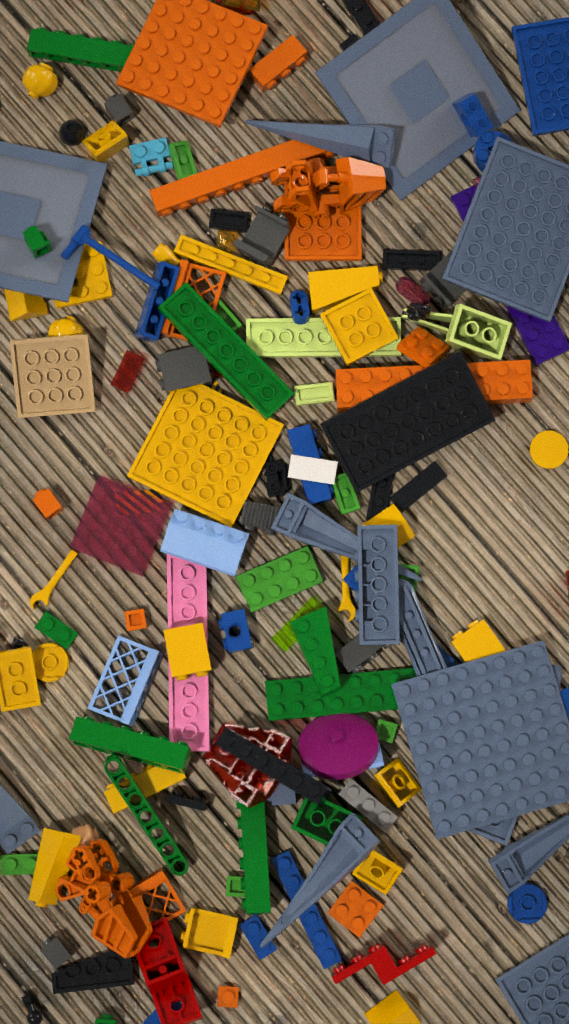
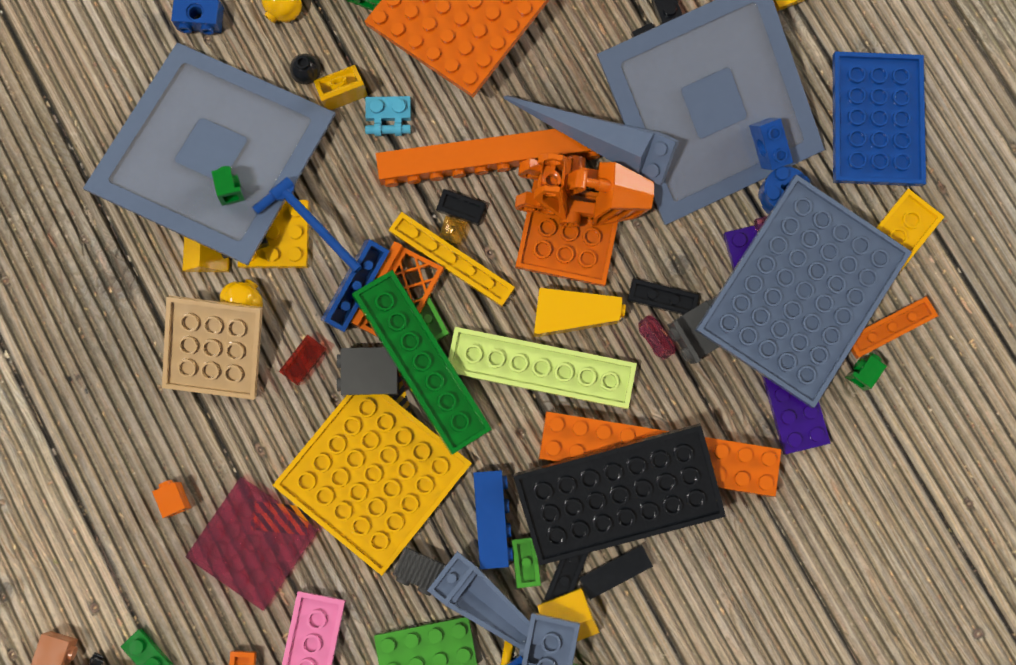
camera: 10 degrees right, 0 degrees up
(44, 594) = (143, 607): yellow piece -> none
(118, 109) = (363, 54): dark grey brick -> none
(165, 254) = (377, 231): yellow cone -> none
(182, 159) = (423, 125): bright green plate -> none
(204, 542) = (344, 589): light blue slope -> none
(264, 236) = (497, 234): dark grey panel -> none
(272, 468) = (443, 533): black piece -> none
(278, 64) = (557, 39): orange brick -> none
(303, 306) = (516, 326): blue beam -> none
(312, 469) = (493, 527): white sticker -> none
(314, 394) = (515, 432): yellowish green tile -> none
(359, 326) = (585, 365): yellow plate -> none
(423, 347) = (655, 406): orange plate -> none
(468, 329) = (714, 398): yellowish green slope -> none
(548, 449) = (780, 560): yellow tile -> none

